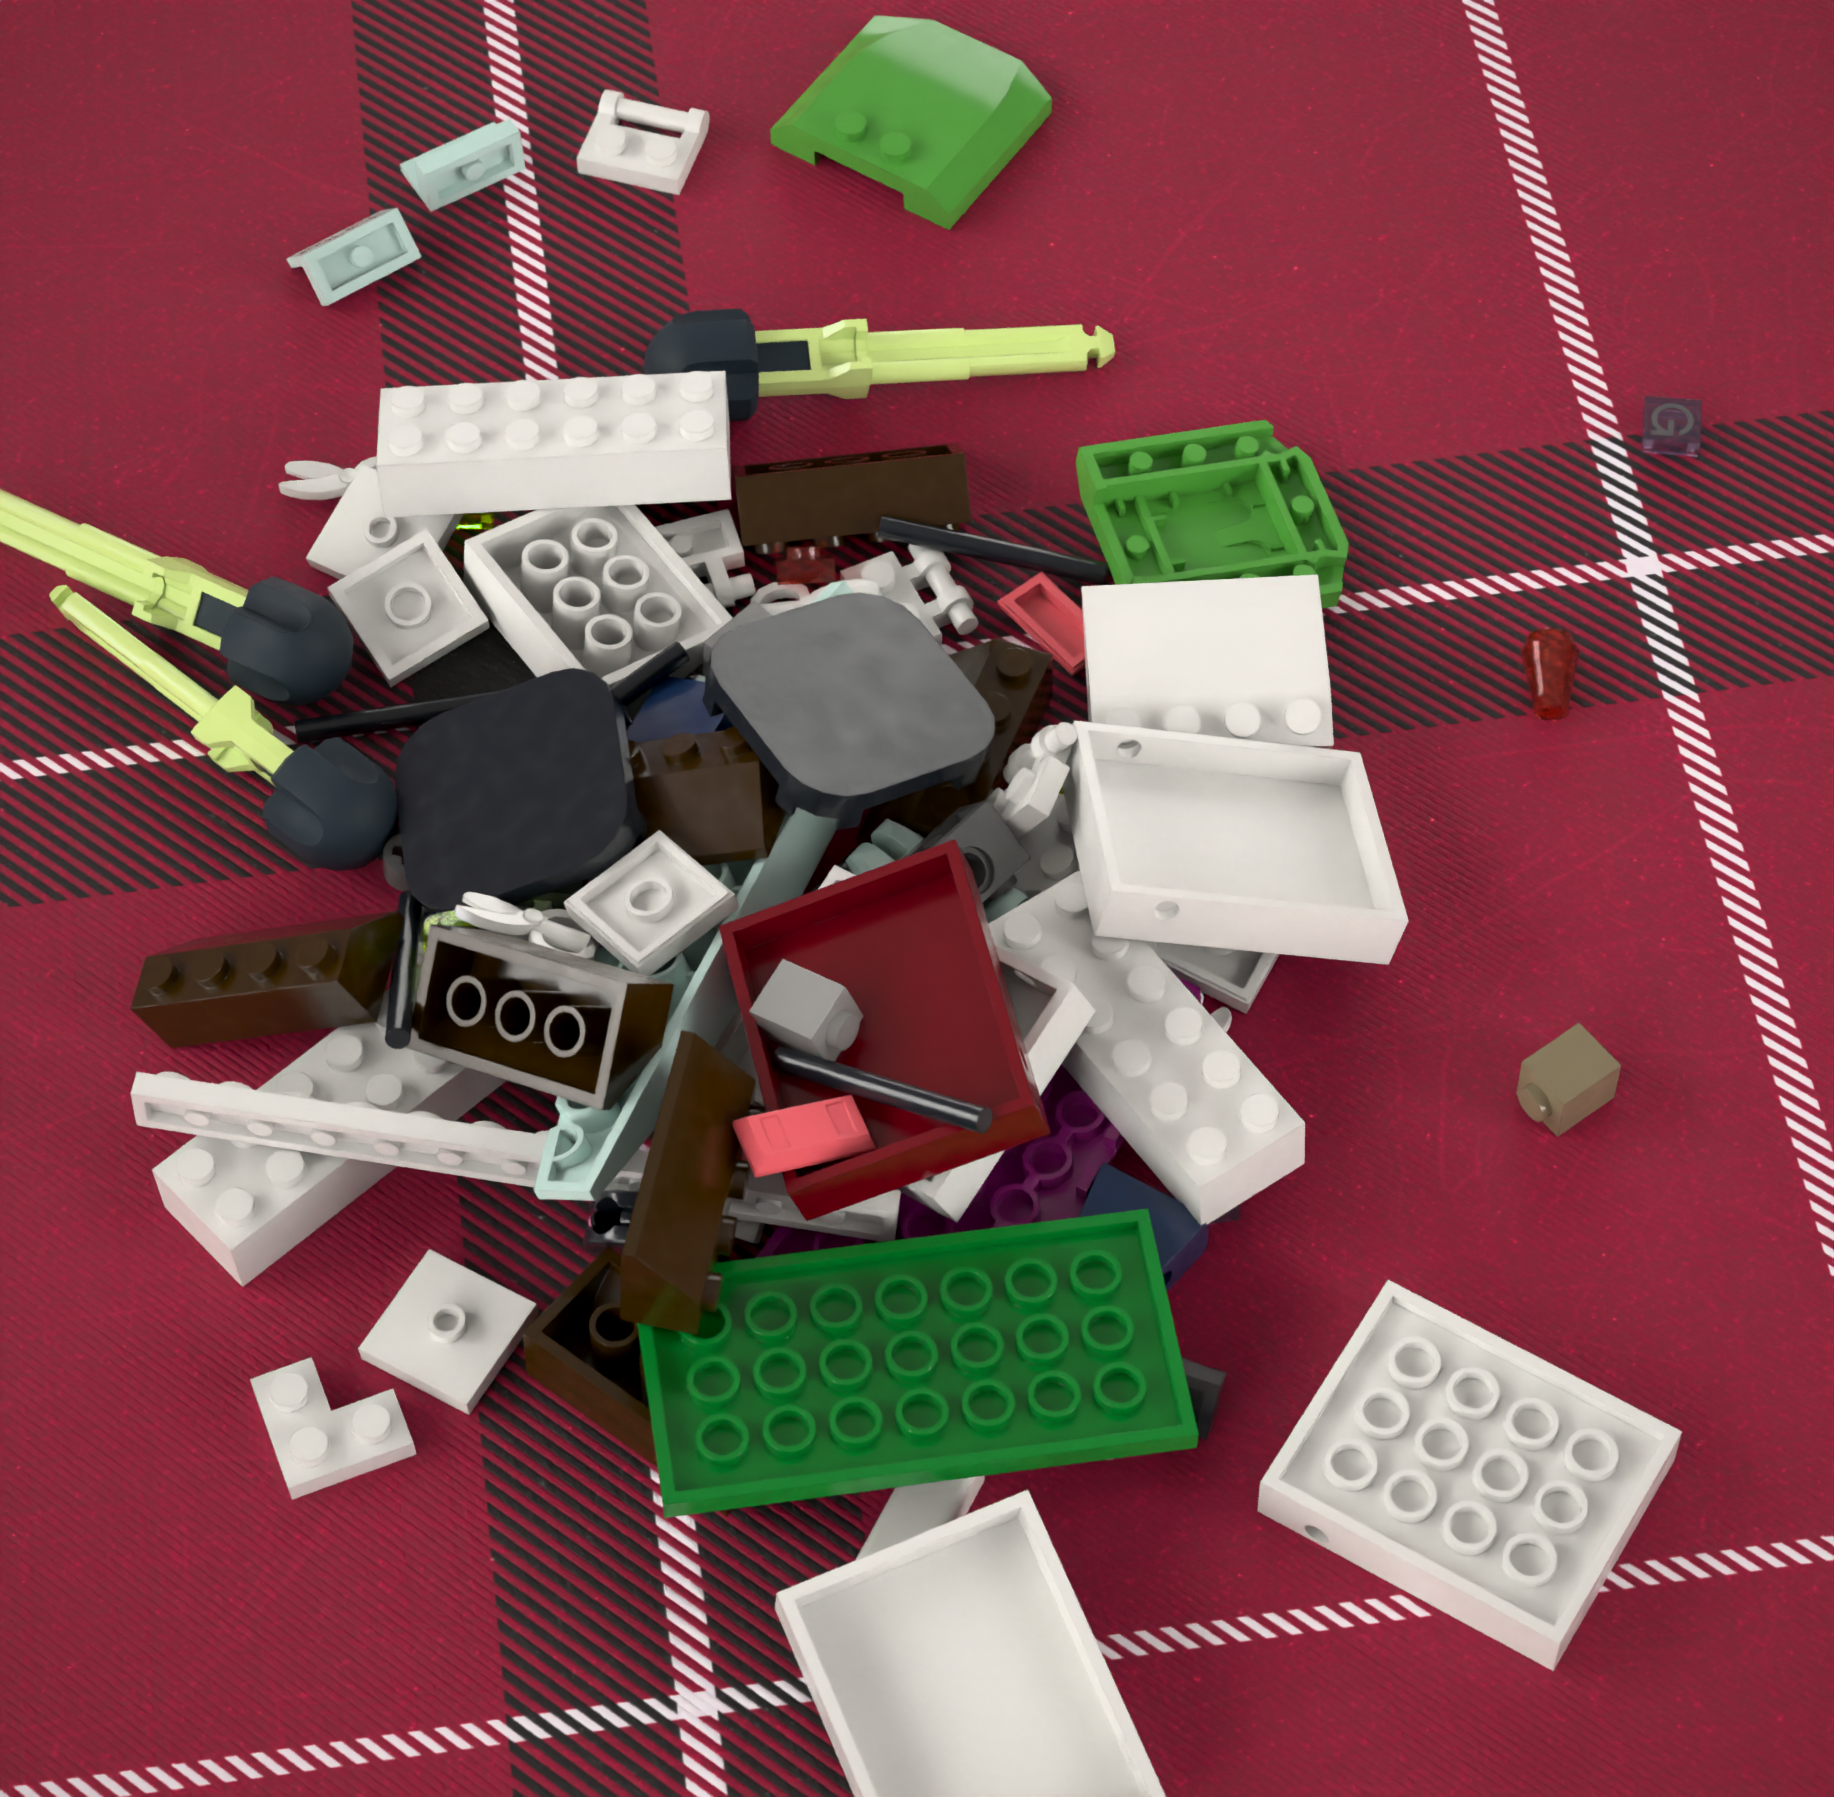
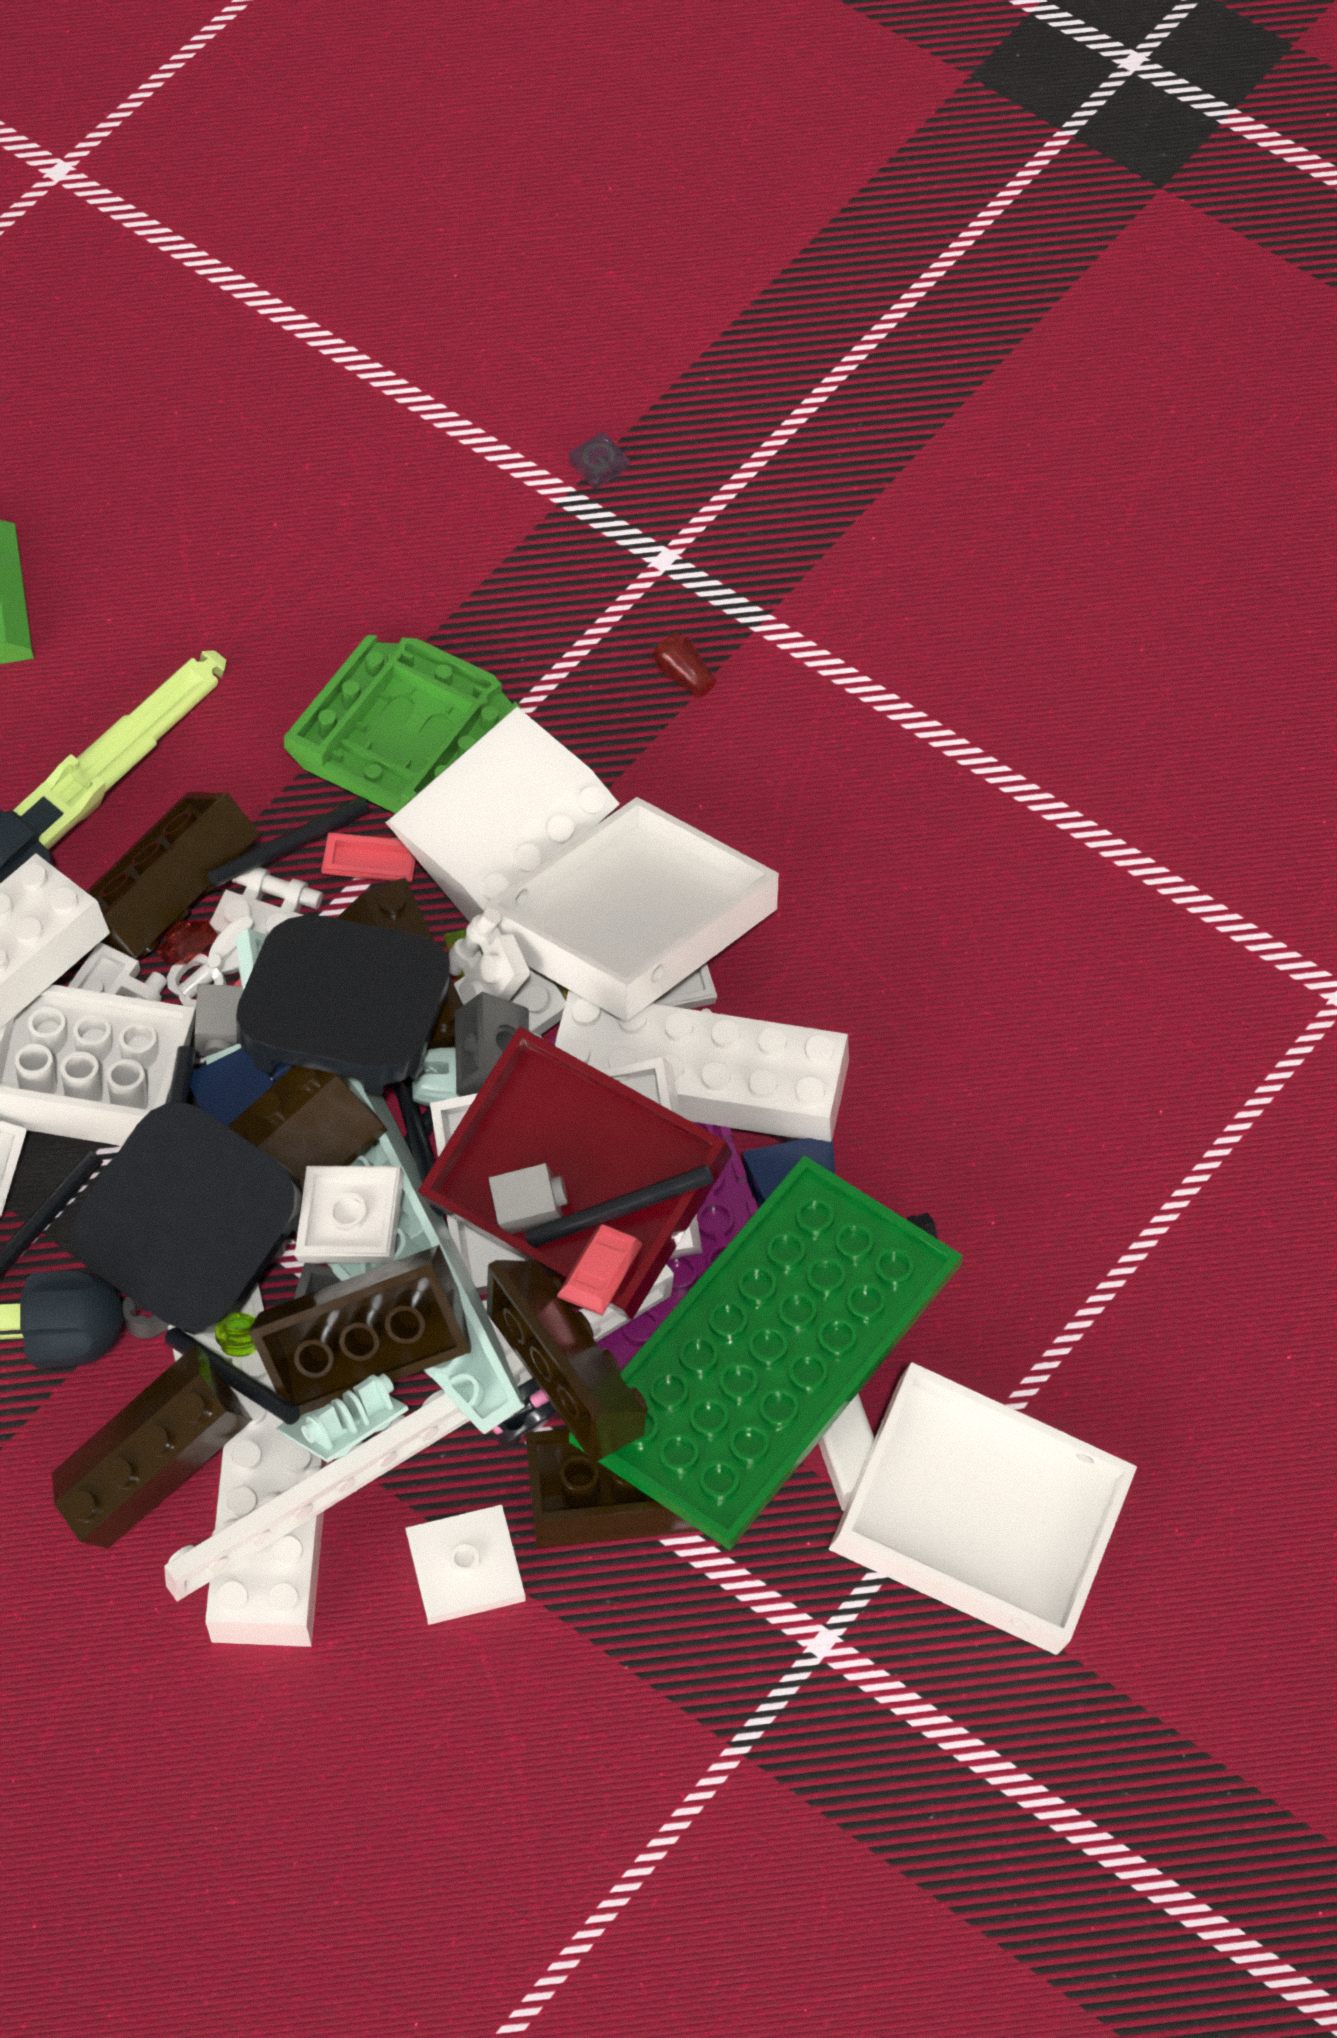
camera: 45 degrees left, 5 degrees up
(326, 1445) = (455, 1693): white plate -> none
(420, 1083) = (346, 1422): none -> light aqua hinge
(547, 928) = (290, 1286): white piece -> none
(1469, 1473) = (1098, 1158): white piece -> none
(1567, 1080) = (932, 897): dark tan brick -> none

